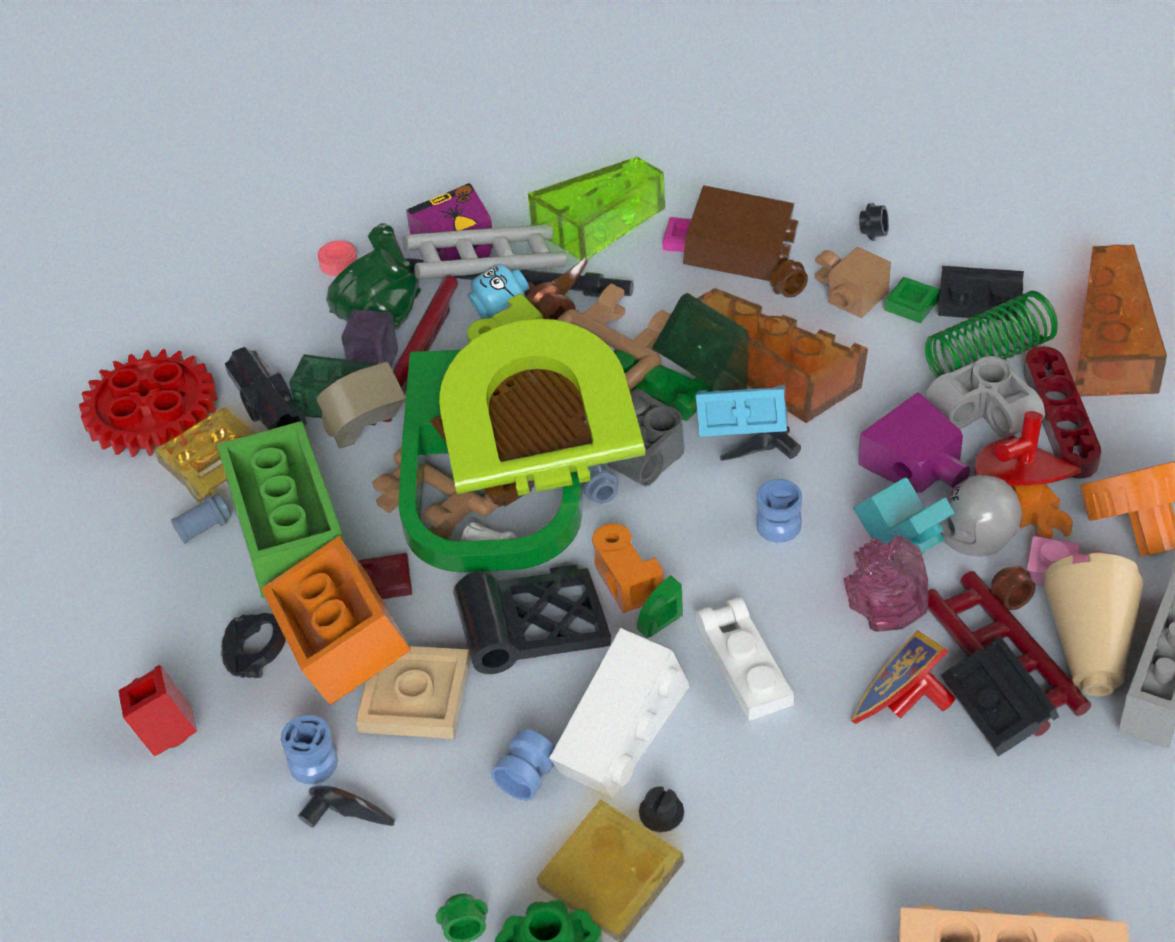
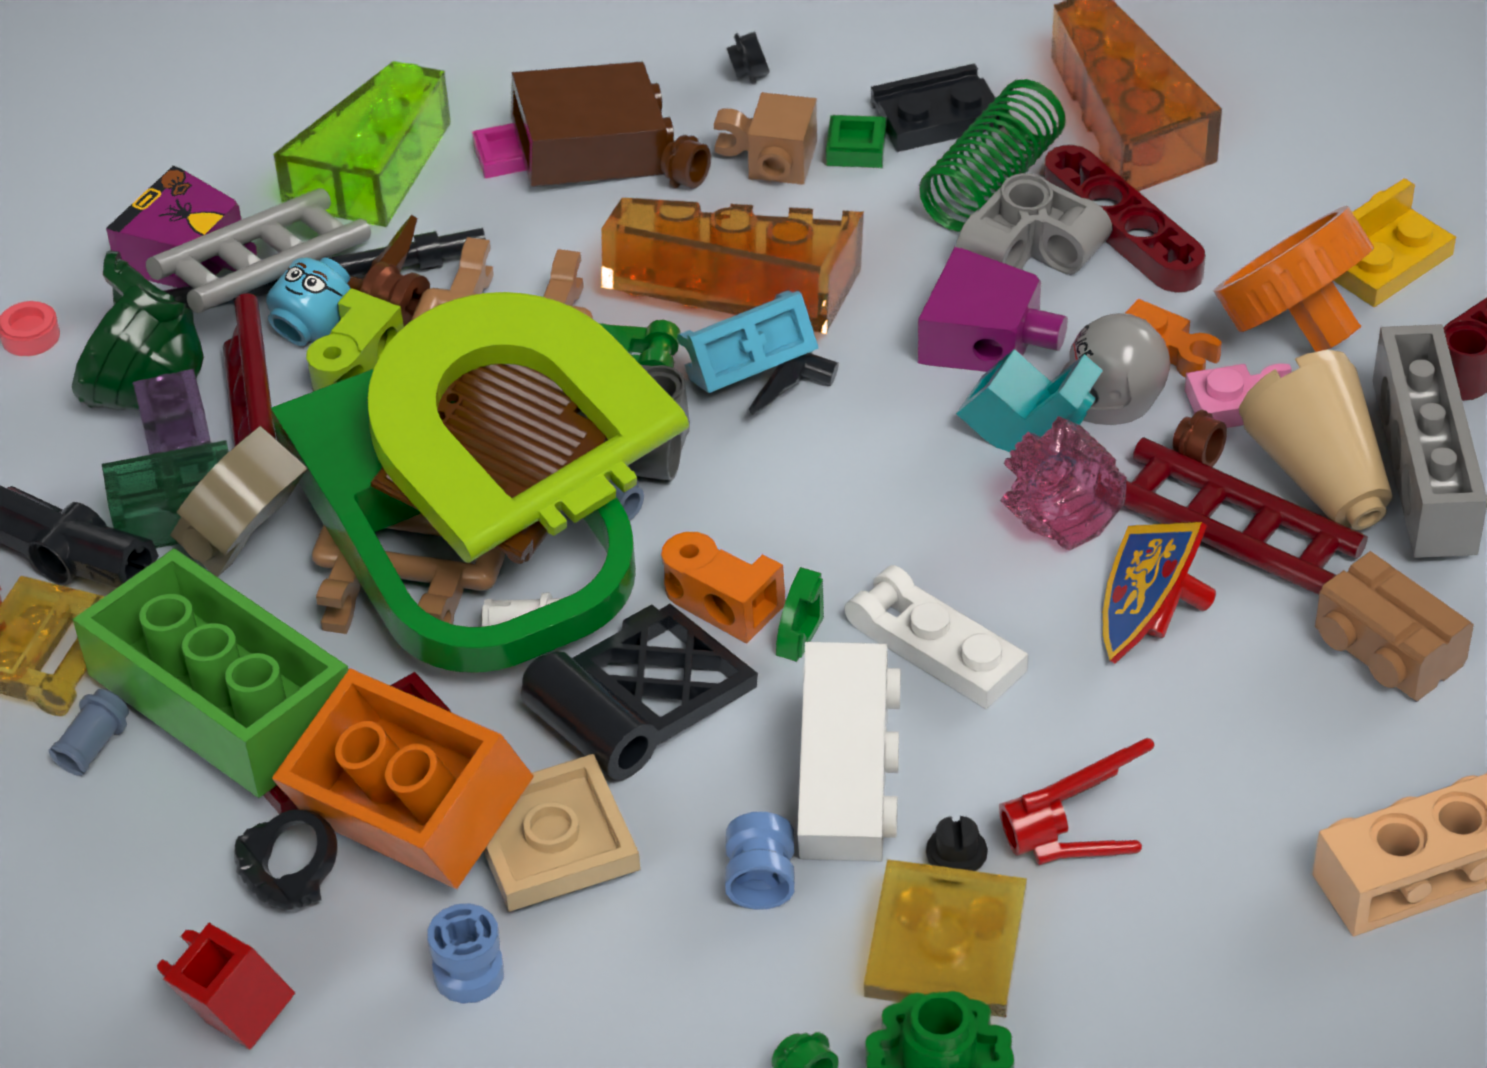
camera: 30 degrees left, 0 degrees up
(343, 803) = (550, 999): black bar -> none
(706, 344) = (656, 270): clear green slope -> none
(723, 813) = (1039, 816): none -> red plant
(779, 510) = (869, 447): medium blue wheel -> none
(999, 696) = (1267, 564): black plate -> none
(1020, 460) = (1118, 287): red shield -> none
(1063, 777) = (1393, 626): none -> medium nougat brick

